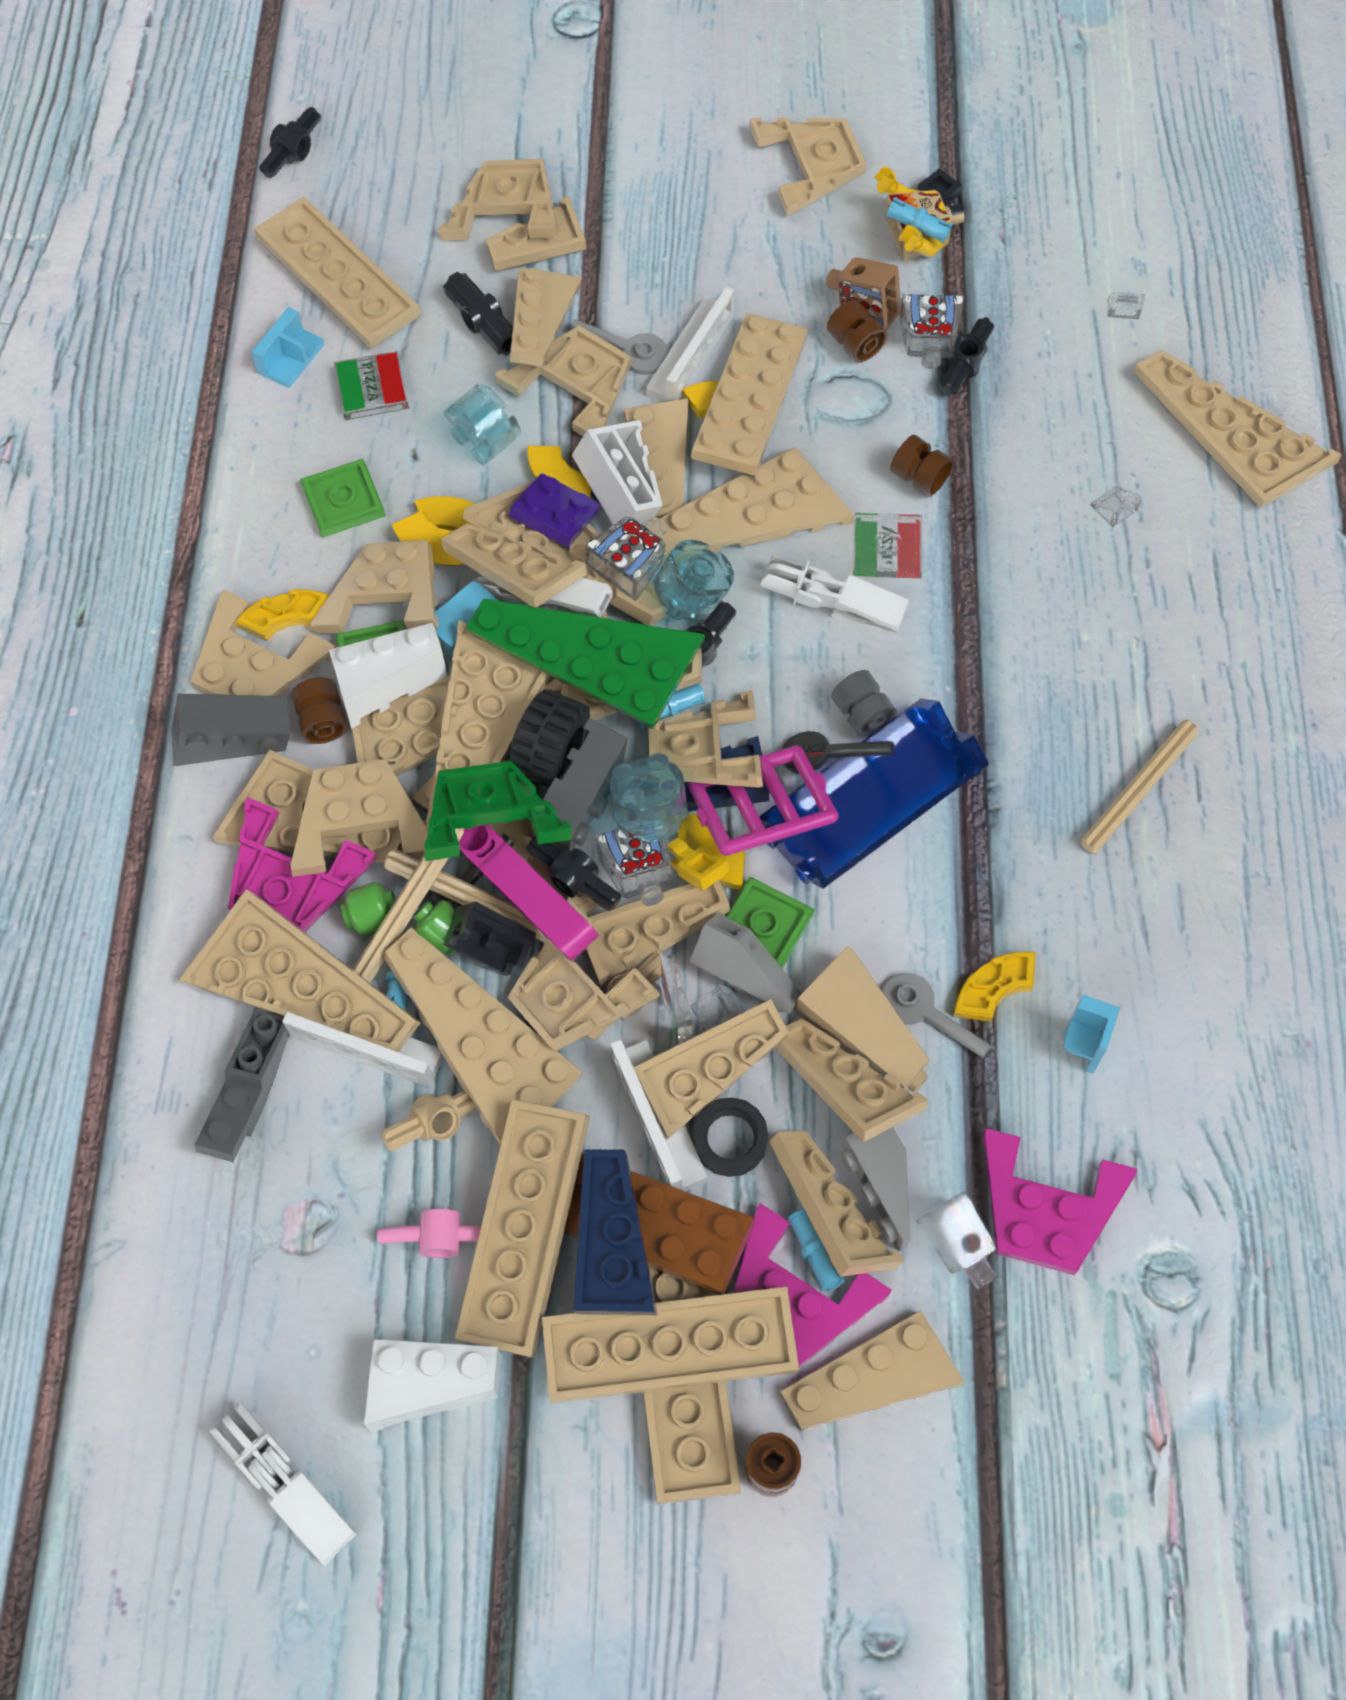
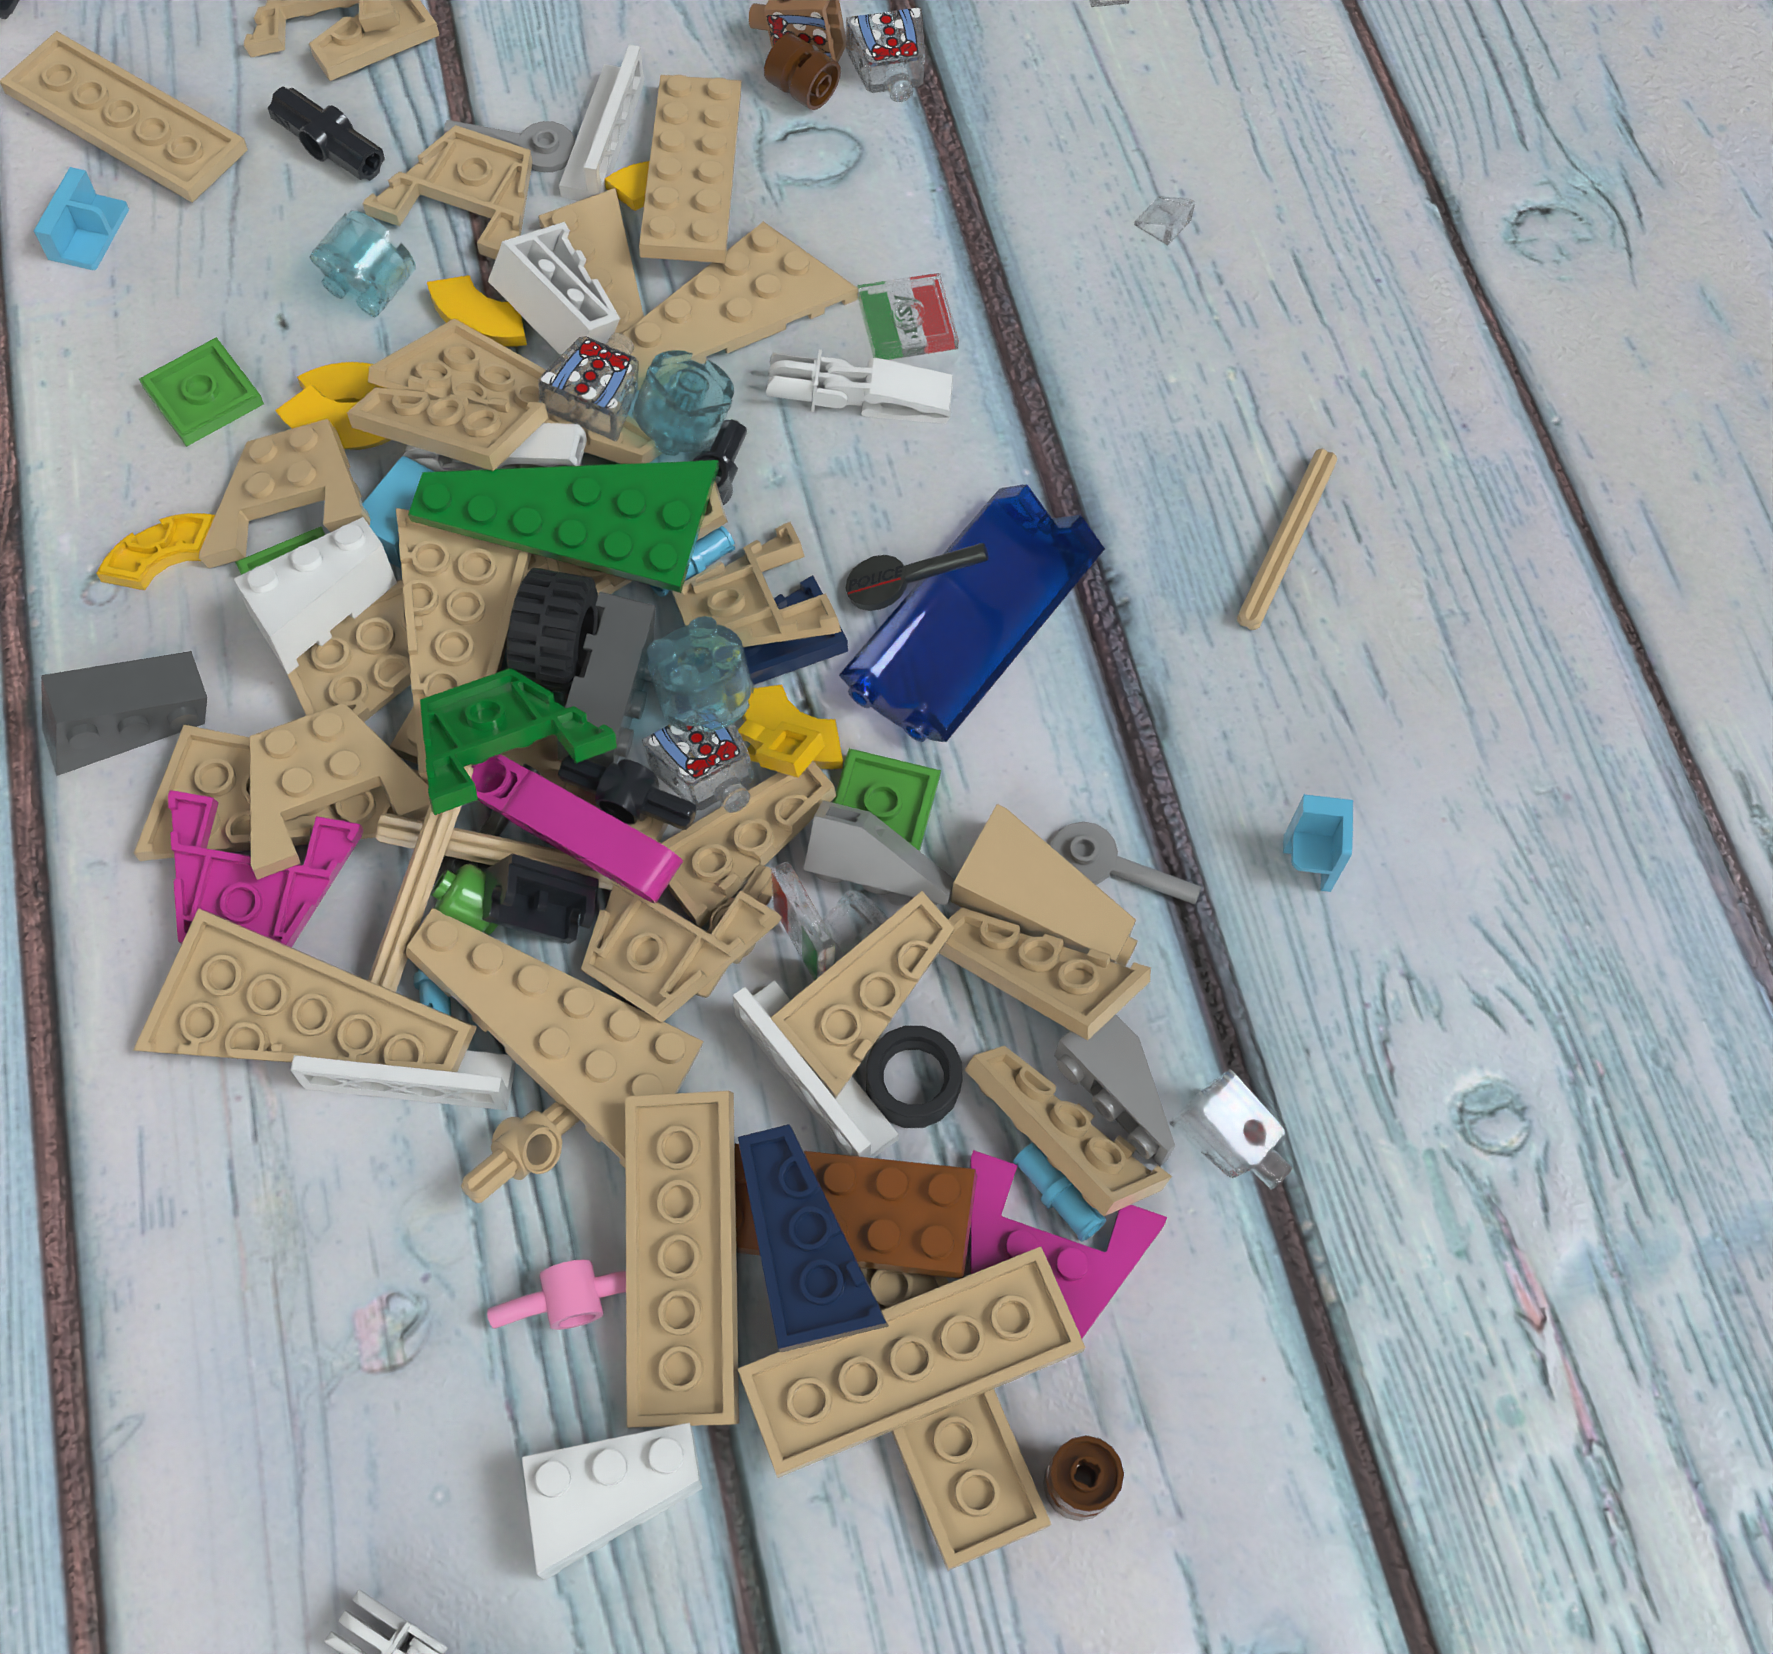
camera: 20 degrees left, 0 degrees up
(242, 667) = (117, 627): tan wing -> none
(246, 1086) = (261, 1168): dark grey slope -> none
(319, 710) = (238, 660): reddish brown wheel -> none
(366, 907) = (366, 897): bright green head -> none
(371, 385) = (204, 246): tile -> none
(540, 312) = (401, 118): tan wing -> none
(554, 510) = (483, 350): dark purple plate -> none
(758, 833) = (851, 690): dark pink bar -> none
(860, 698) = (928, 503): dark grey wheel -> none
(881, 1372) = (1185, 1321): tan wing -> none
(925, 467) = (922, 213): reddish brown wheel -> none
(967, 356) = (942, 78): black axle -> none
(993, 983) = (1182, 810): yellow tile -> none
(1046, 1222) = (1325, 1085): dark pink wing -> none
(1238, 434) = (1278, 108): tan wing -> none

